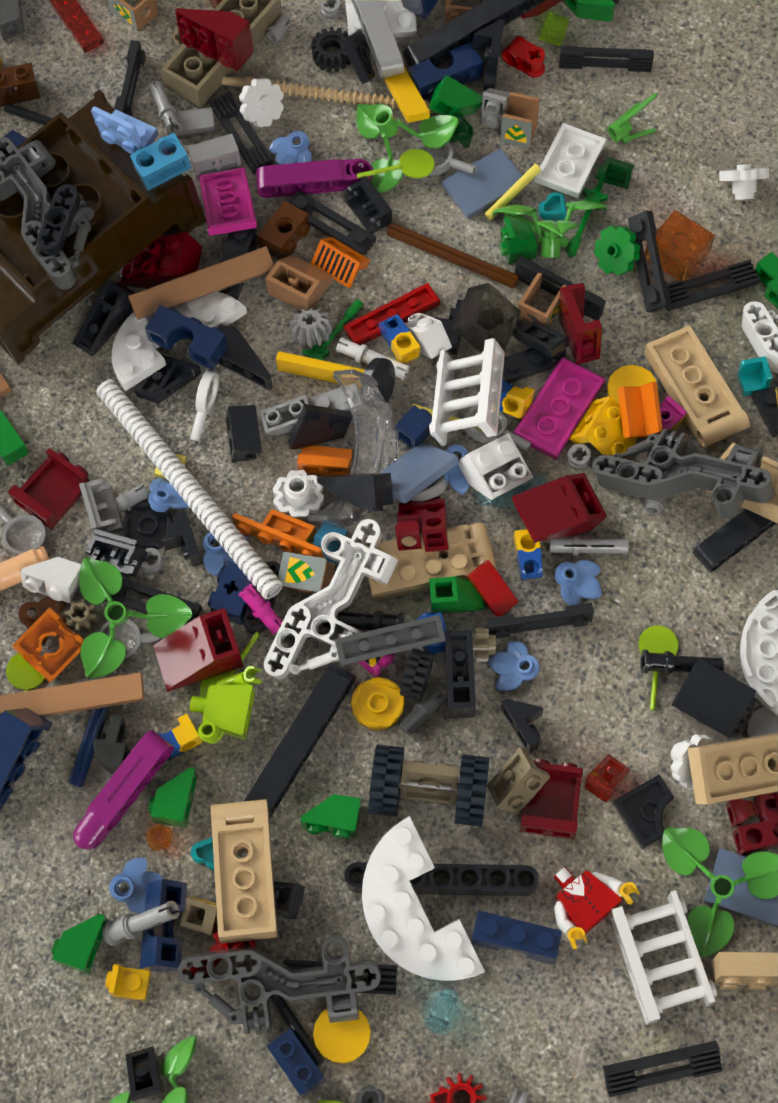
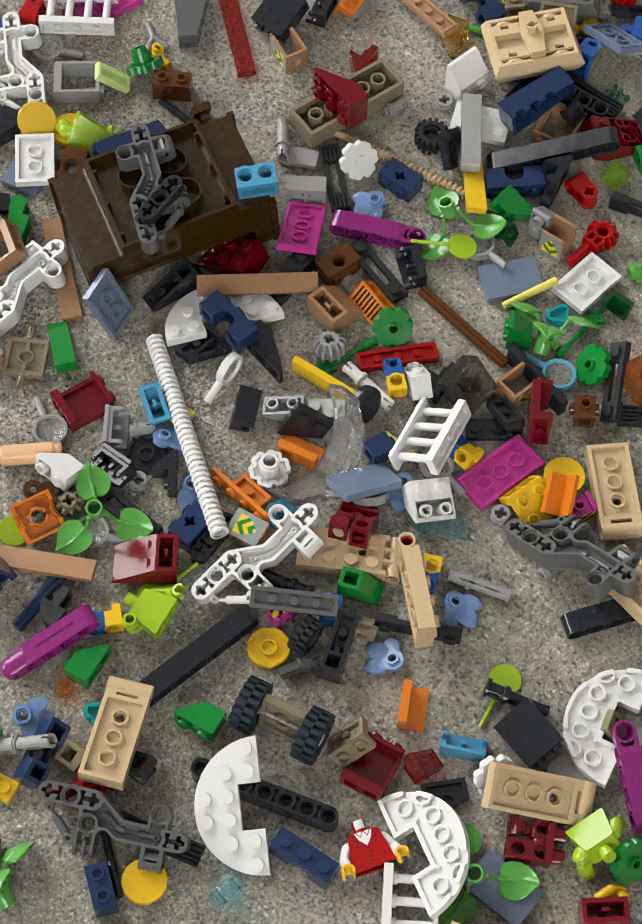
camera: 15 degrees right, 5 degrees down
(37, 363) = (108, 303): none -> sand blue tile
(58, 104) = (201, 111): none -> reddish brown tile
(124, 130) = (238, 147): light blue bracket -> none
(134, 59) = (250, 128): black container -> none
(136, 463) = (154, 403): none -> dark azure slope
(261, 608) = (206, 544): dark pink pin -> none
(317, 110) = (400, 180): none -> dark blue brick
(361, 489) = (318, 481): black slope -> none
(375, 280) = (392, 326): none -> green plant
(492, 588) = (390, 591): red tile -> none
(519, 717) = (374, 697): black slope -> none
(526, 578) = (416, 591): none -> tan hinge
(560, 508) = (466, 548): dark red slope -> none
(563, 105) = (594, 242): none -> red gear
(568, 714) = (412, 707): none -> orange panel
(577, 270) = (558, 370): none -> piece
(626, 305) = (584, 410): none -> reddish brown brick
(644, 740) = (463, 747): none -> dark azure hinge
(666, 856) = (442, 839): none -> white plate

